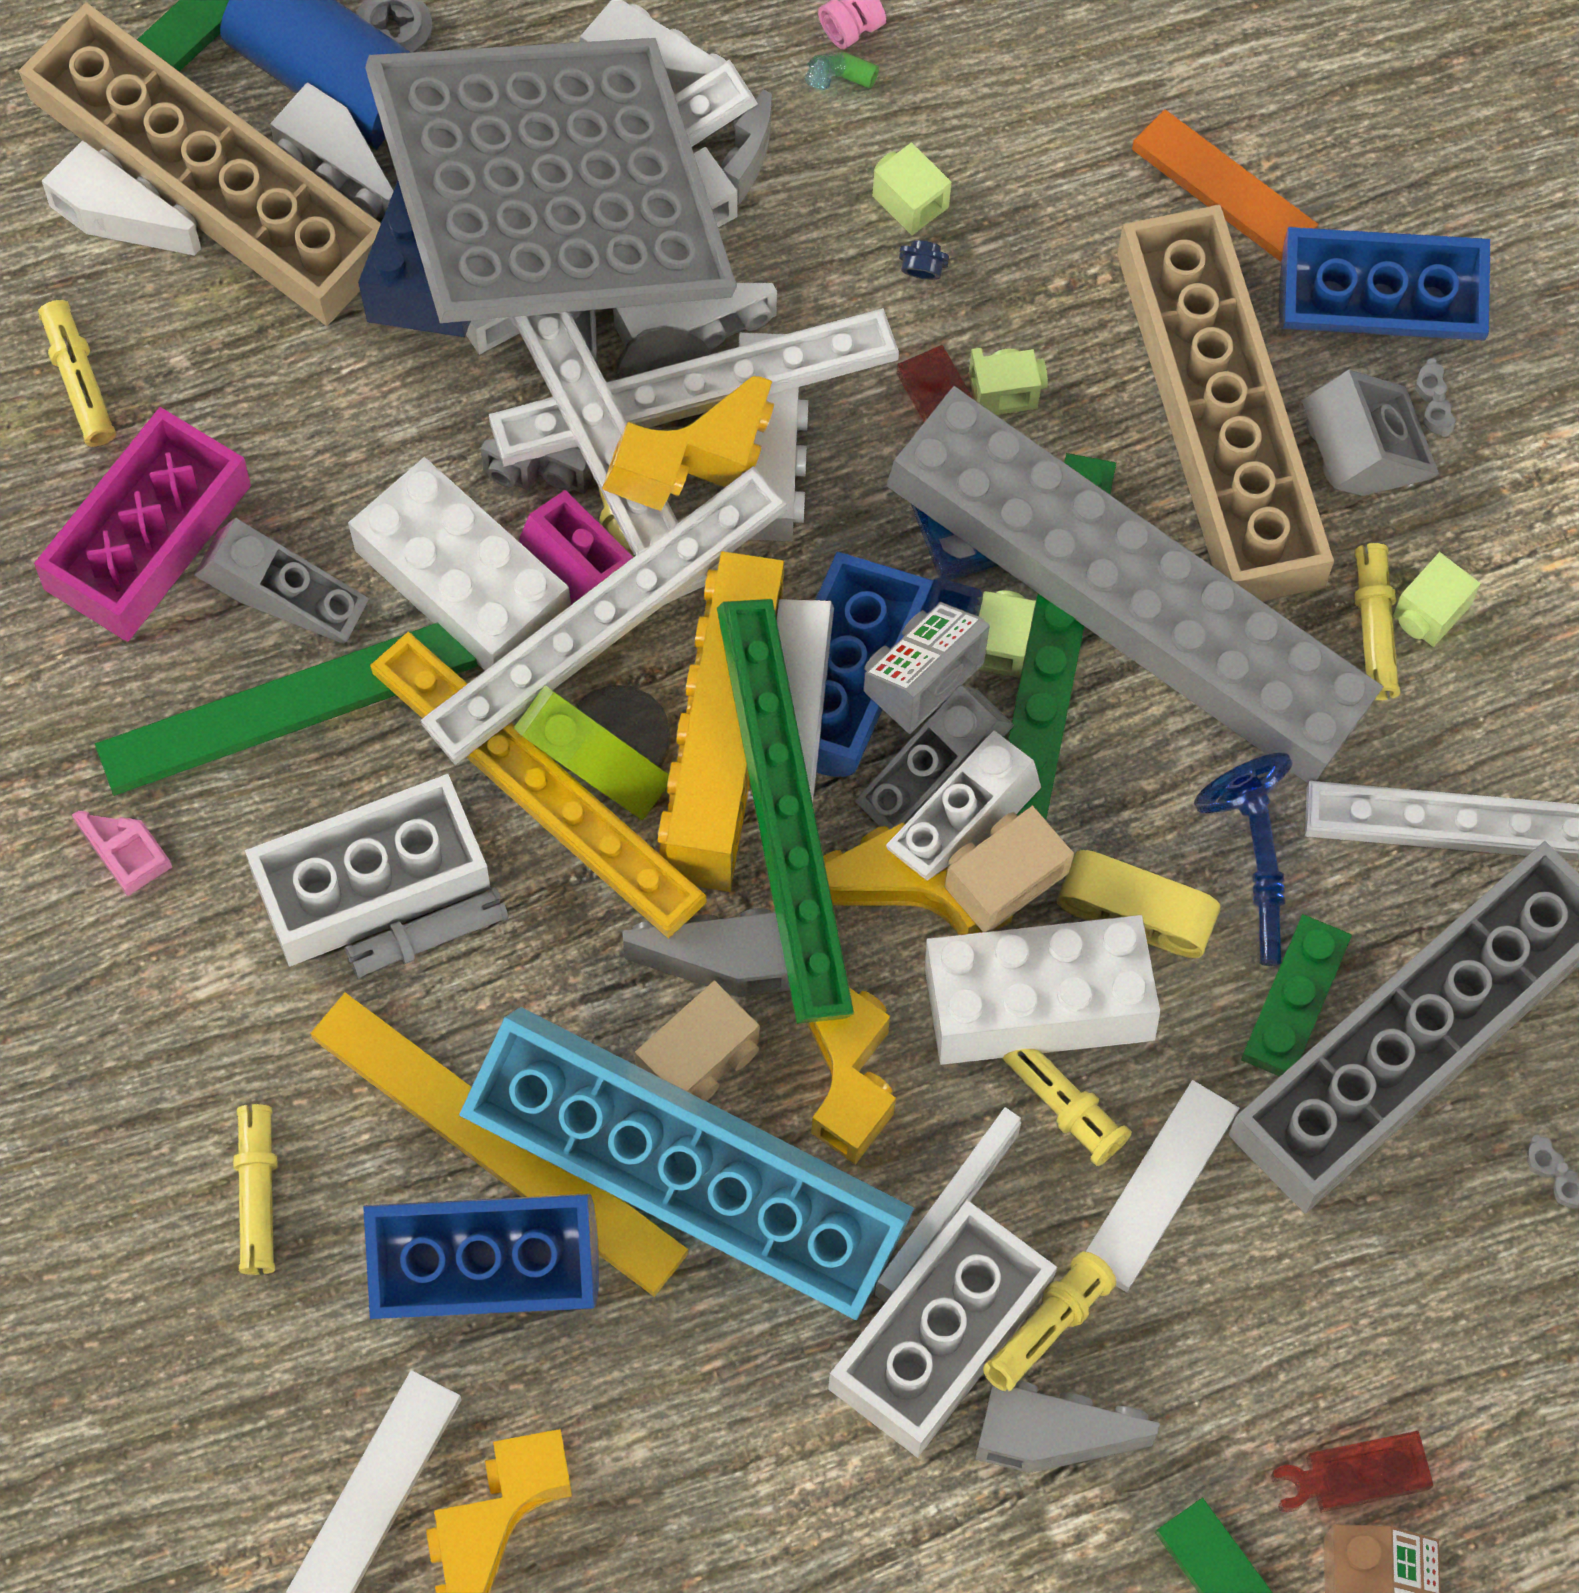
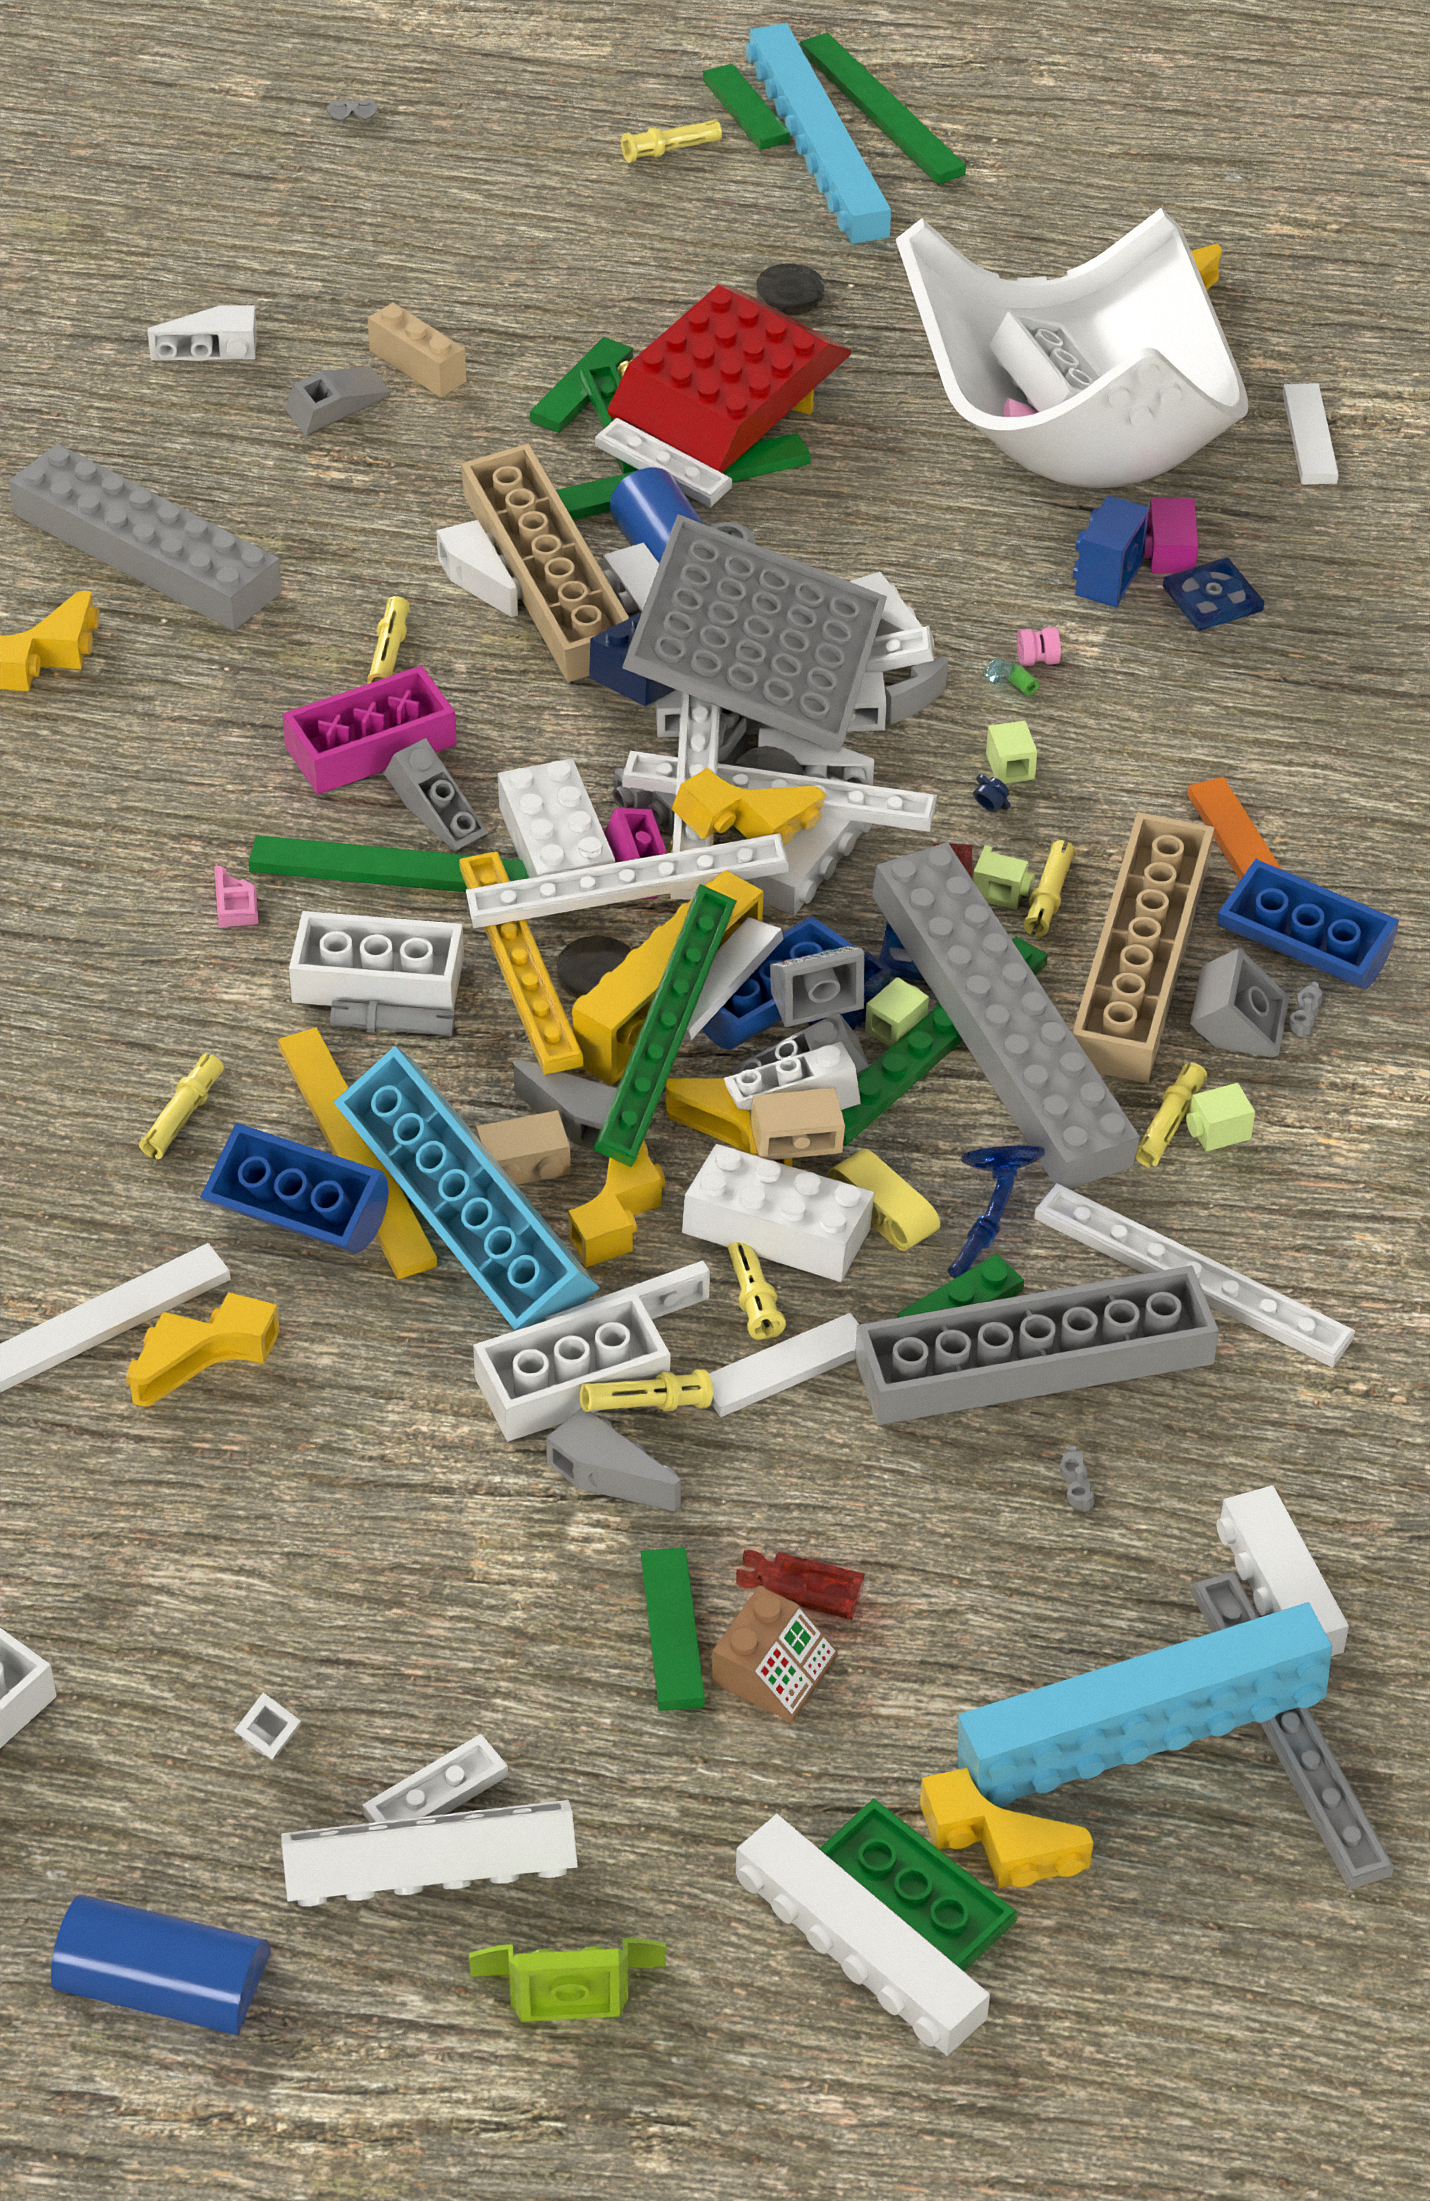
camera: 30 degrees right, 20 degrees down
(592, 752) = (561, 945): lime slope -> none
(1069, 383) = (1046, 898): none -> light yellow pin

